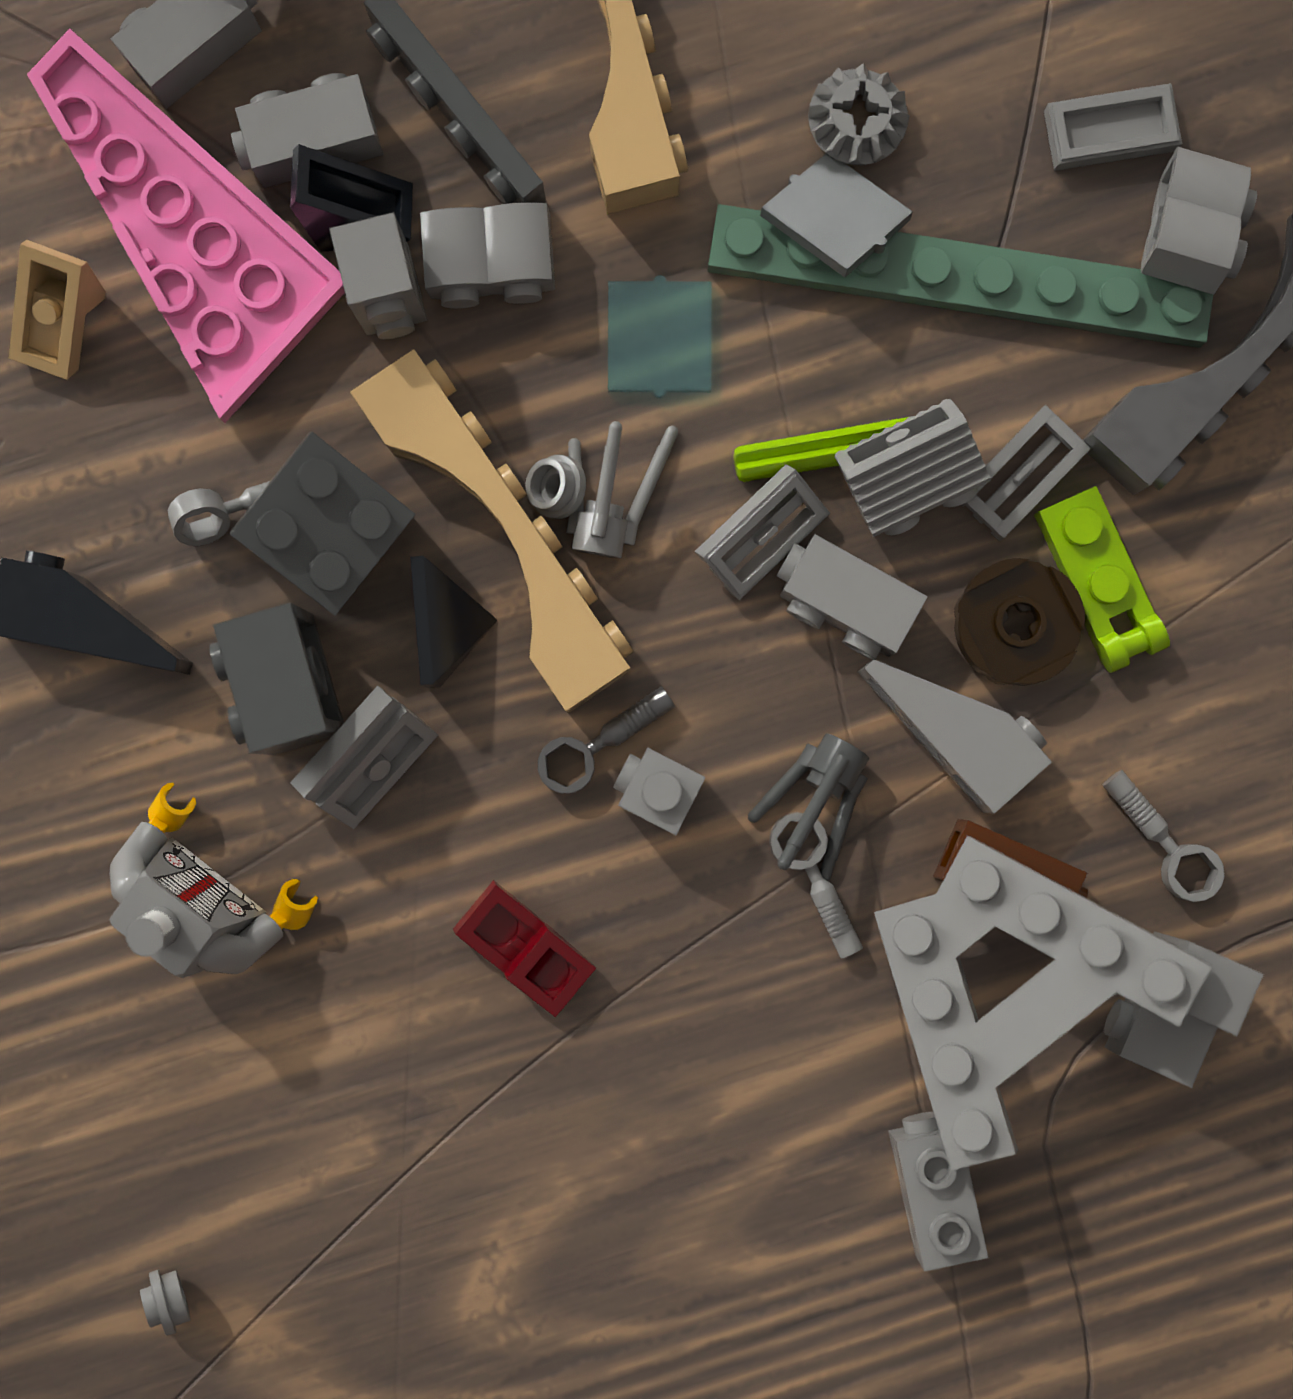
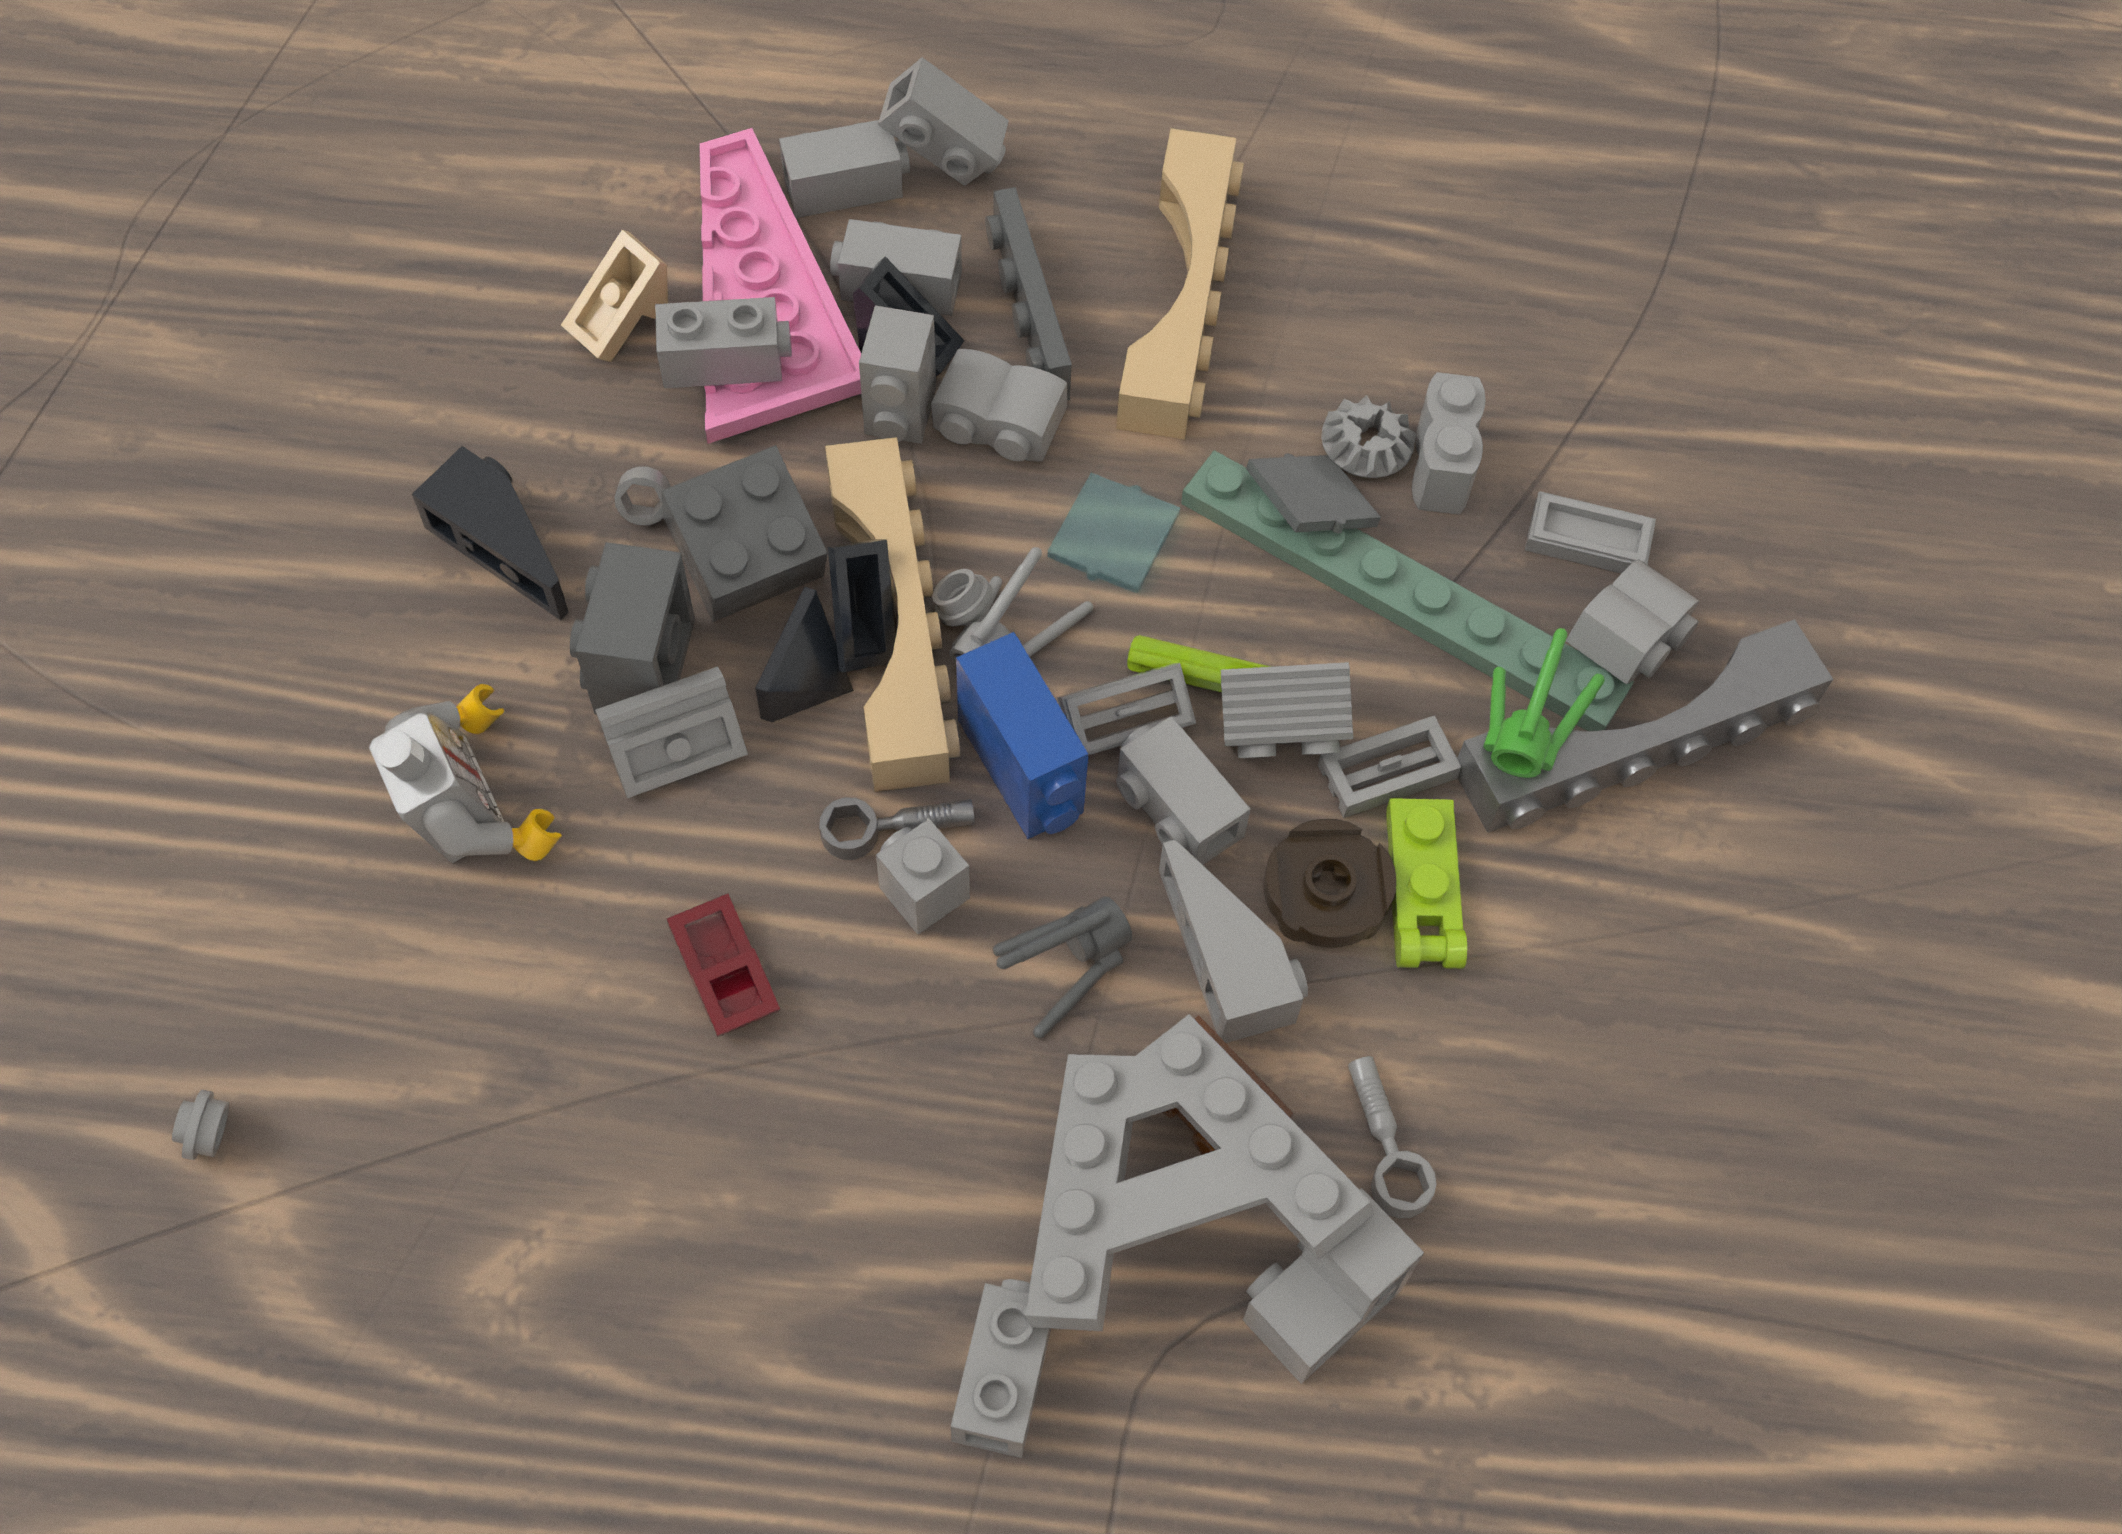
camera: 20 degrees right, 25 degrees down
(187, 321) = (720, 342): none -> light grey brick
(473, 547) = (862, 604): none -> black slope
(689, 620) = (1021, 736): none -> blue brick
(822, 891) = (1030, 1042): light grey piece -> none
(939, 86) = (1448, 443): none -> light grey brick
(1157, 415) = (1523, 742): none -> bright green plant

